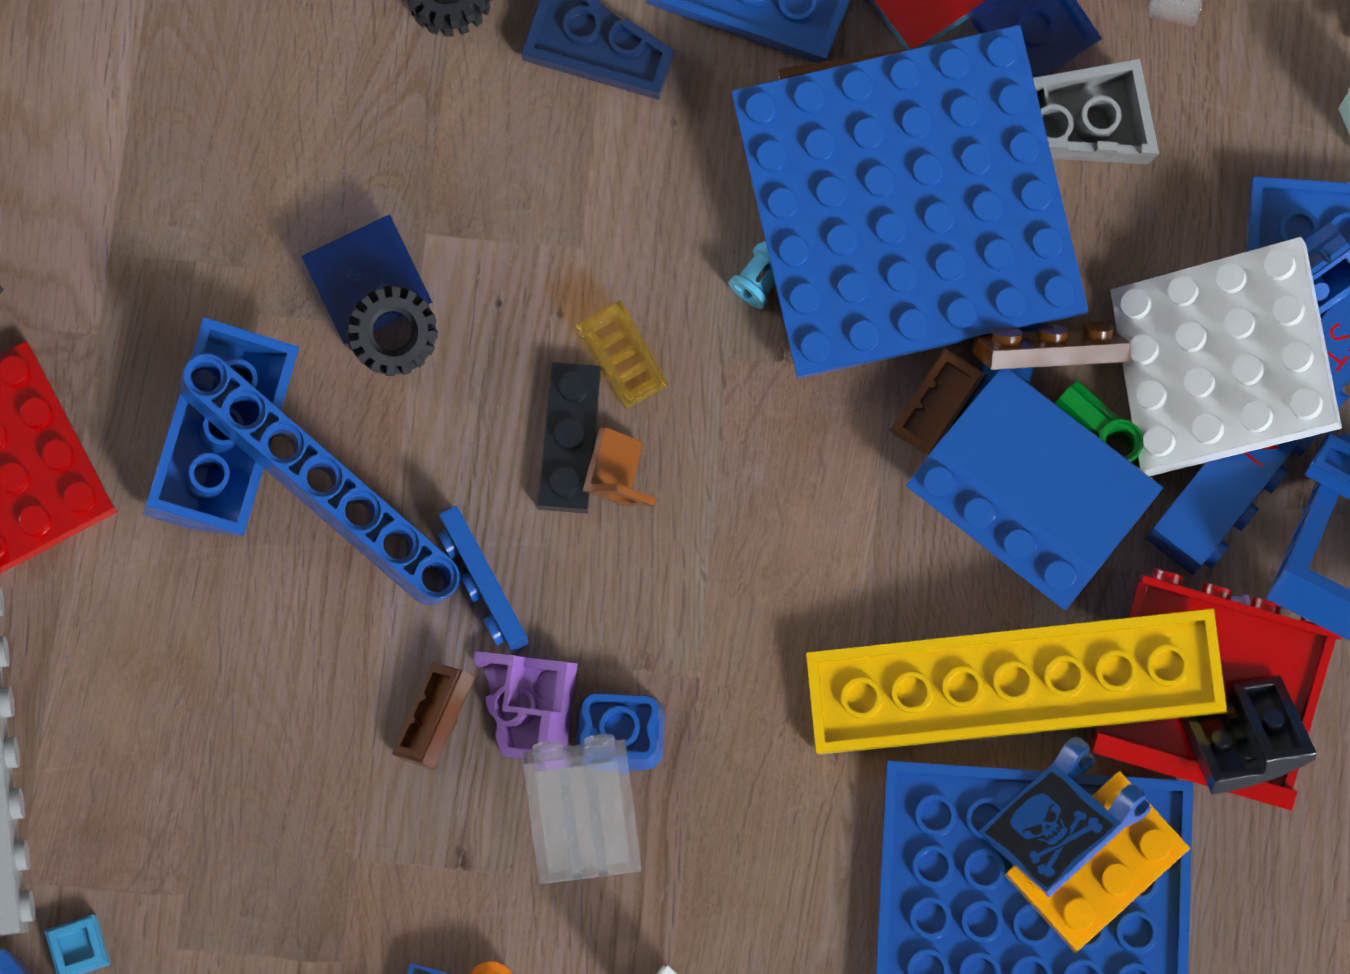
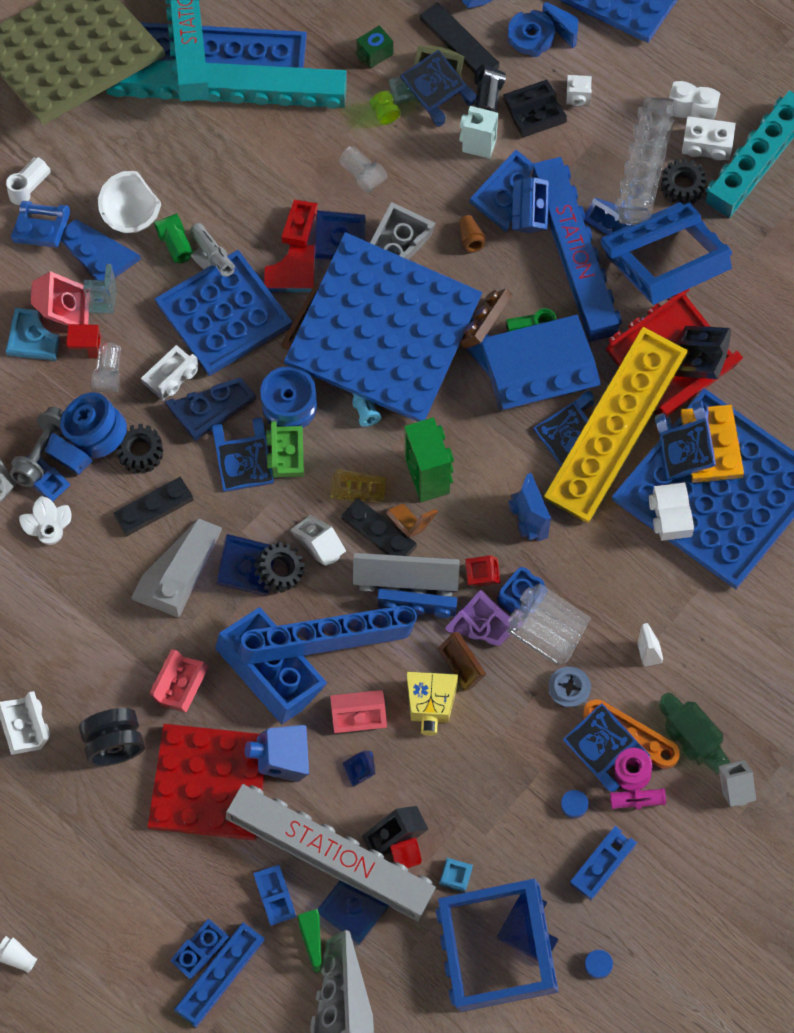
camera: 55 degrees left, 10 degrees down
(56, 848) = (406, 853): none -> red slope
(81, 807) = (395, 828): none -> black slope
(87, 544) = (281, 752): none -> torso
(105, 313) = (178, 681): none -> coral bracket
(156, 681) = (360, 767): none -> clear blue slope
(244, 612) = (358, 711): none -> coral panel
(283, 186) = (174, 575): none -> light grey wedge
(334, 712) = (431, 699): none -> light yellow torso
(371, 77) = (153, 506): none -> black plate
(482, 357) = (319, 540): none -> white slope
(486, 905) = (580, 682): none -> sand blue gear
(517, 526) = (406, 572): none -> light grey slope
(542, 154) = (243, 460): none -> flag
(599, 202) = (287, 451): none -> bright green bracket
(603, 645) = (482, 571): none -> red brick
(681, 118) = (288, 397): none -> blue wheel
(723, 427) = (428, 459): none -> green brick
(769, 637) = (530, 511): none -> blue slope
(919, 878) = (672, 511): none -> white brick
(938, 402) = (474, 378): reddish brown plate -> none
(960, 603) = (564, 427): none -> flag
(1192, 223) = (471, 235): none -> dark orange cone
(1226, 357) = (540, 255): white plate -> none

